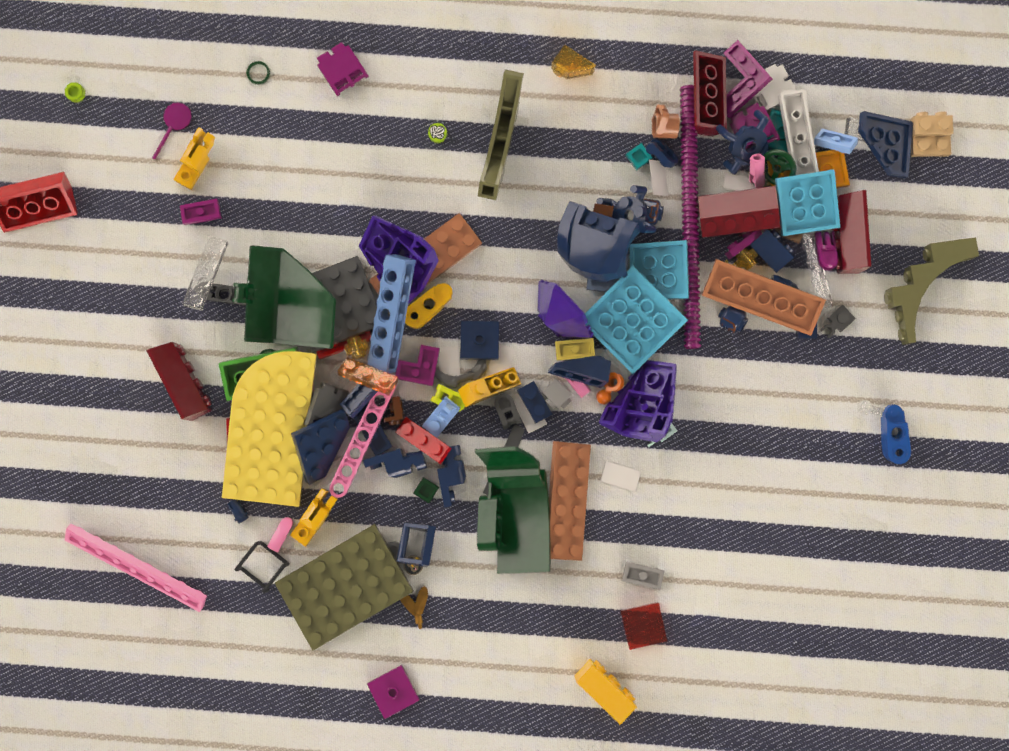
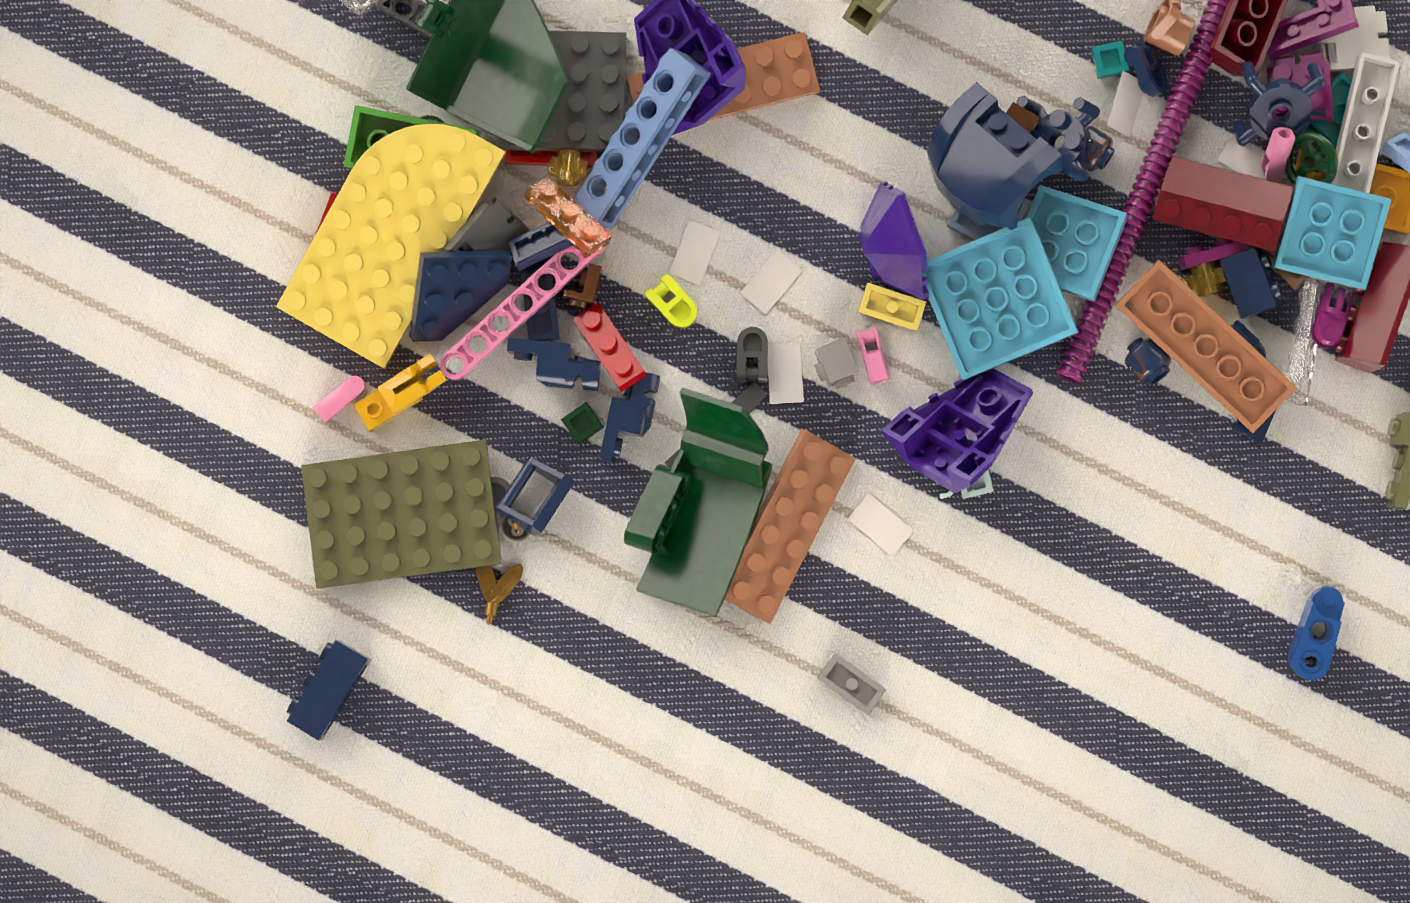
camera: 15 degrees right, 0 degrees up
(135, 567) = (106, 356): bright pink plate -> none
(180, 381) = (287, 108): dark red slope -> none
(238, 511) = (290, 337): dark blue pin -> none
(266, 587) = (285, 466): black piece -> none
(343, 707) = (327, 689): none -> dark blue brick
(393, 691) = (409, 698): magenta plate -> none
(423, 371) = (650, 245): magenta plate -> none
(440, 294) = (724, 141): yellow piece -> none
(441, 416) = (650, 323): light blue plate -> none
(452, 381) = (725, 282): dark grey piece -> none
(479, 340) = (755, 234): dark blue plate -> none
(489, 386) = (740, 309): yellow slope -> none
(534, 402) = (798, 361): dark blue plate -> none
(587, 370) = (895, 344): dark blue slope -> none
(604, 395) = (907, 395): orange plate -> none
(606, 690) = (725, 826): yellow brick -> none
(643, 625) = (821, 758): clear red plate -> none
(839, 320) = (1307, 429): dark grey plate -> none

